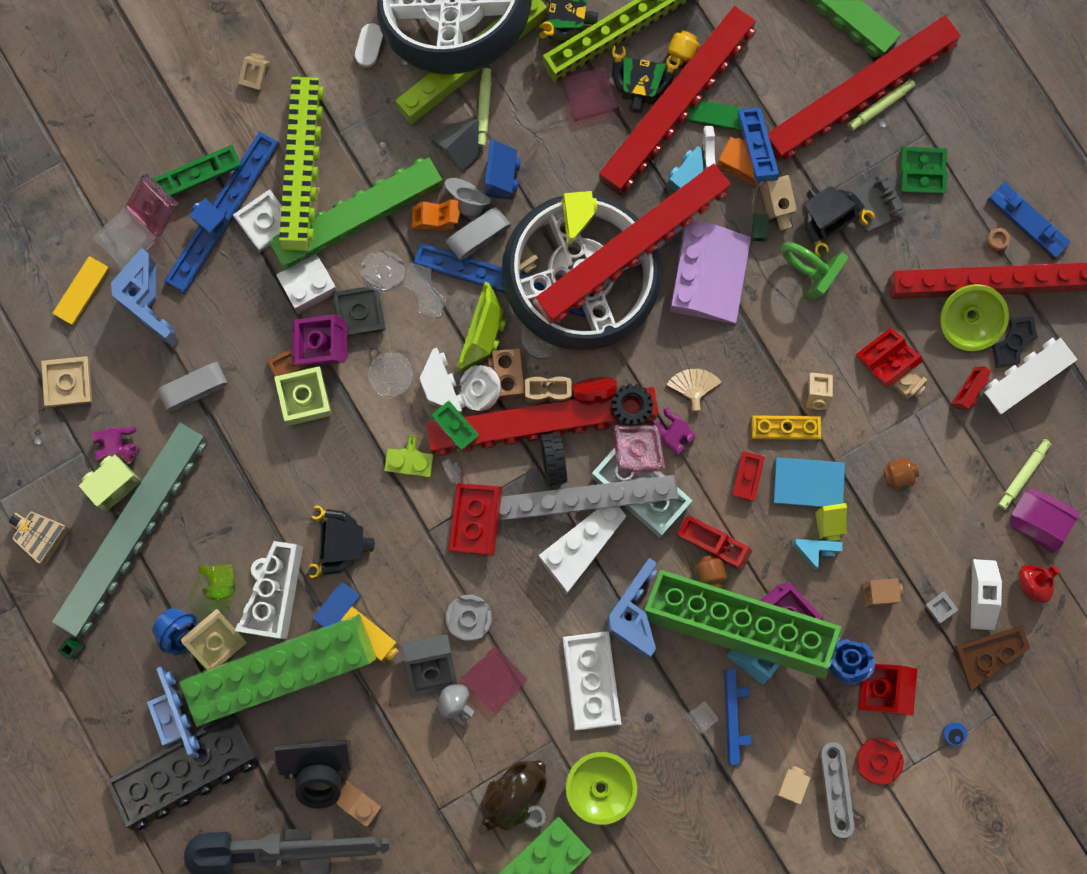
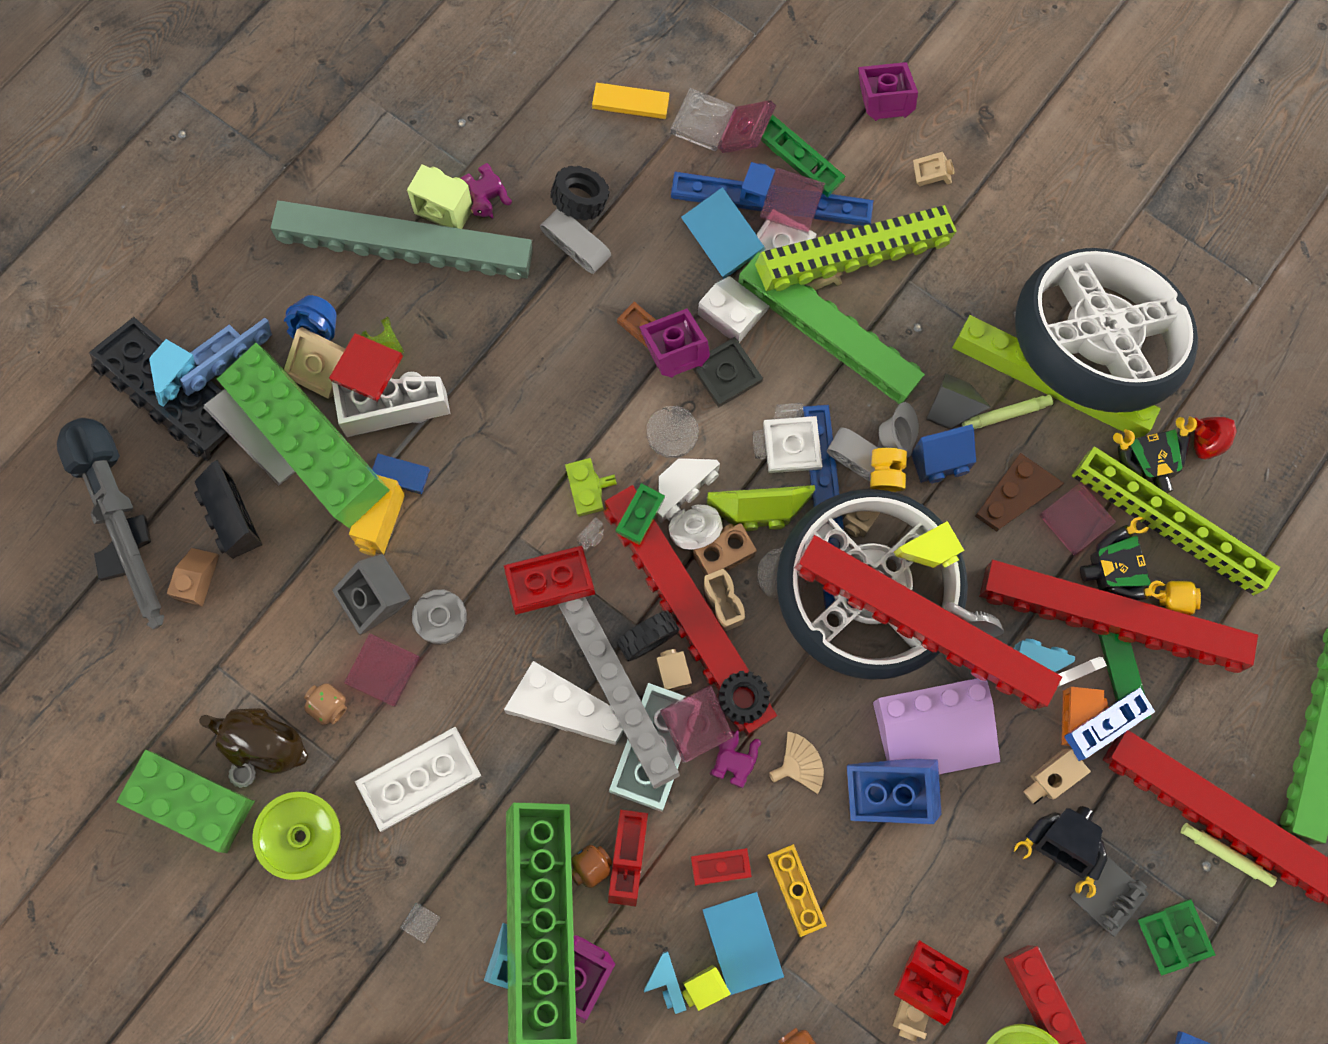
camera: 70 degrees right, 5 degrees down
(38, 535) = (363, 157): torso -> none
(66, 381) = (531, 122): tan plate -> none
(72, 643) = (259, 231): dark green piece -> none
(136, 292) = (665, 141): medium blue bracket -> none
(147, 353) = (578, 206): none -> black tyre
(166, 75) = (888, 90): none -> magenta slope
(171, 763) = (168, 366): none -> medium azure slope
(235, 195) = (792, 200): none -> clear pink tile
(237, 264) = (723, 233): none -> dark azure tile
(240, 598) = (366, 367): none -> red tile
(256, 717) = (248, 436): none -> light grey tile
(303, 396) = (609, 349): yellowish green brick -> none
(315, 798) = (207, 526): black tyre -> none
(339, 542) = (468, 447): black torso -> none
(369, 45) = (1014, 270): white tile -> none
(383, 271) = (779, 378): clear tile -> none
(435, 217) = (863, 407): orange brick -> none
(442, 284) = (792, 444): none -> white tile
(453, 703) = (335, 634): light grey piece -> none
(498, 219) = (888, 469): none -> yellow wheel
(504, 732) = (325, 704): none -> medium nougat head
(550, 130) = (1016, 492): none -> reddish brown wing
(586, 451) = (673, 670): none -> tan brick
(590, 388) = (750, 653): red tile -> none
(637, 631) = (488, 805): medium blue bracket -> none
(644, 205) = (984, 622): none -> light grey piece
(731, 710) = (407, 970): blue hinge -> none
(744, 323) = (895, 791): none -> blue slope
(759, 227) = (1015, 767): dark green piece -> none
(819, 391) = (855, 913): tan bracket -> none
(822, 274) = (995, 855): bright green tile -> none

